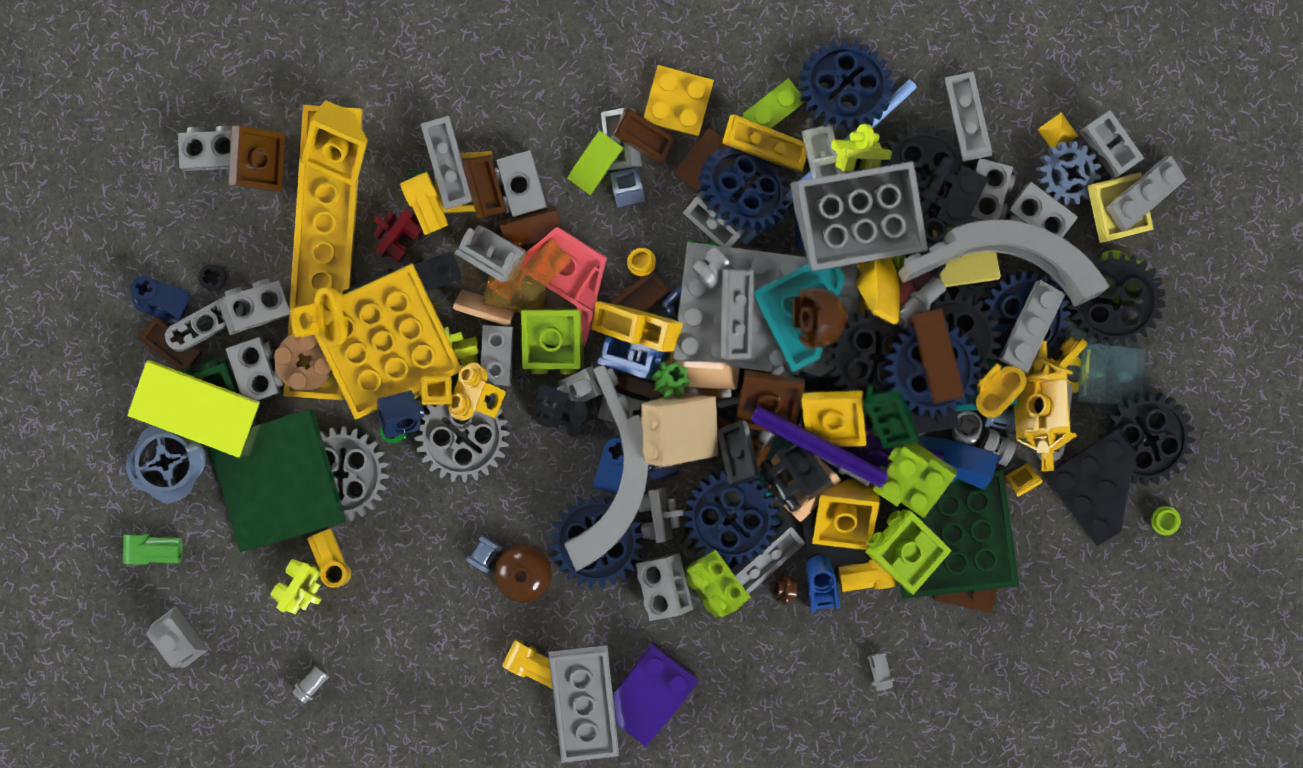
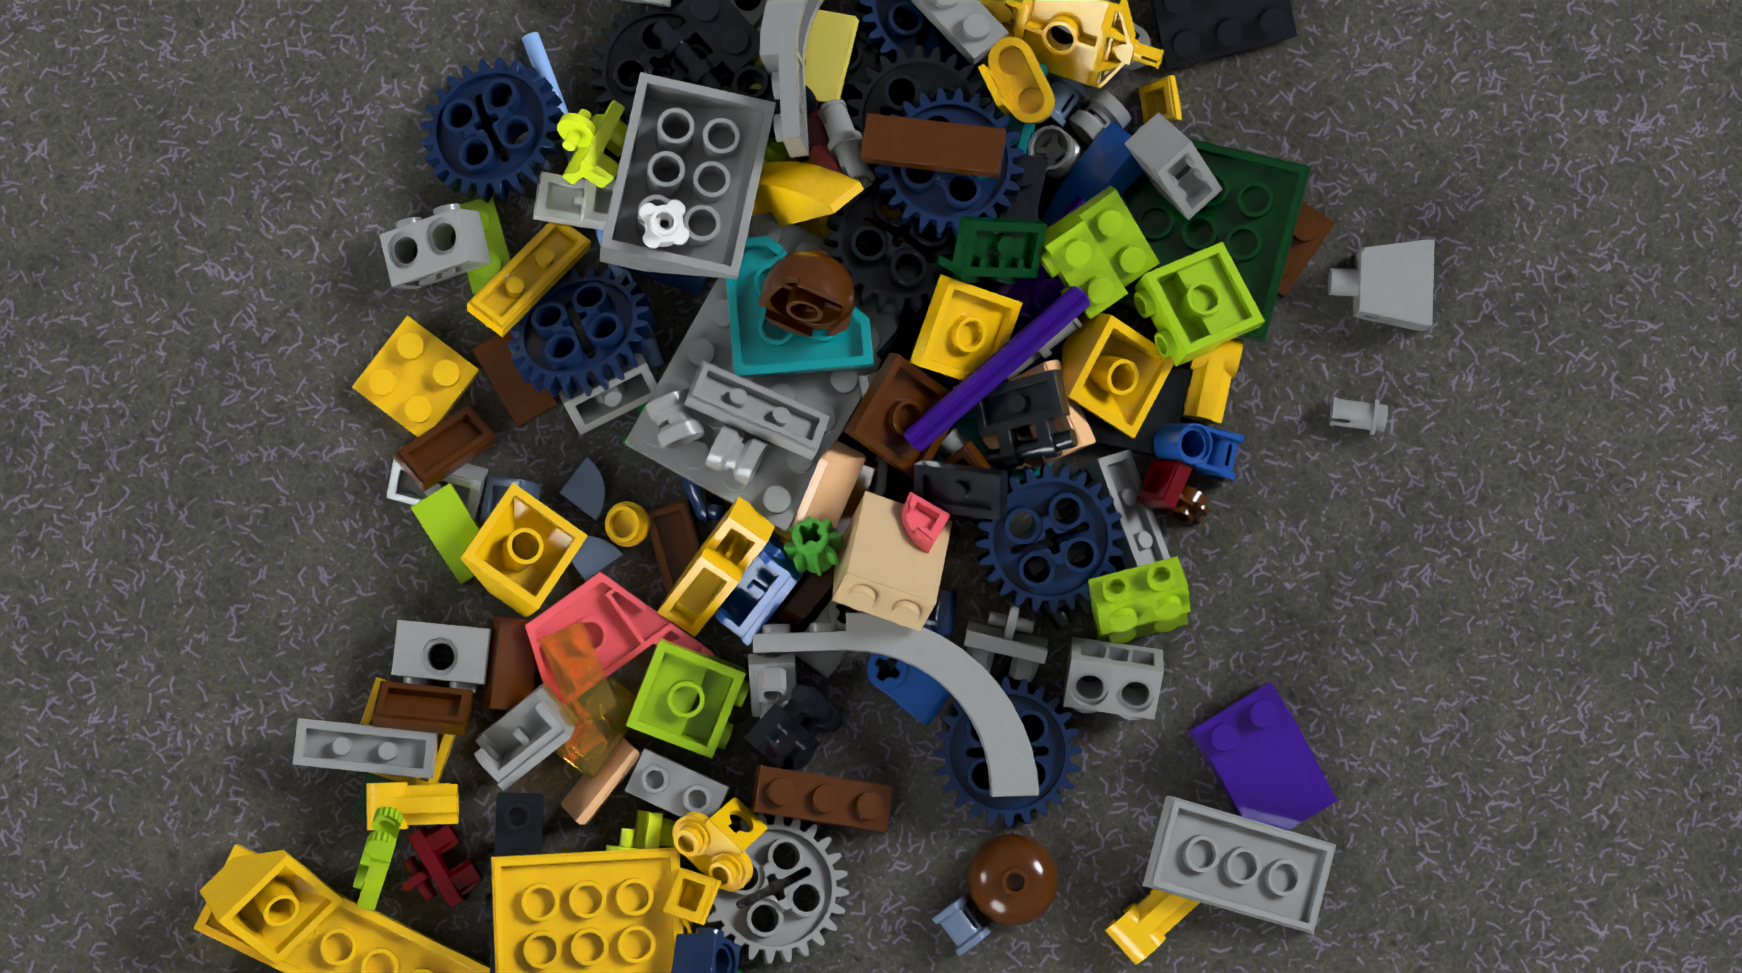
camera: 75 degrees left, 5 degrees down
(386, 196) = (377, 856): none -> lime hinge
(524, 442) = (821, 799): none -> reddish brown plate
(600, 207) = (522, 550): none -> yellow slope
(615, 247) = (595, 556): none -> sand blue tile
(652, 229) = (586, 489): none -> sand blue tile
(706, 312) = (733, 453): none -> light grey wheel
(710, 438) = (922, 521): none -> coral tile
(757, 82) = (435, 254): none -> light grey brick
(791, 572) = (1163, 484): none -> dark red tile
(817, 211) = (654, 233): none -> white plate
(967, 660) = (1390, 284): none -> light grey torso
(985, 503) = (1173, 165): none -> light grey brick

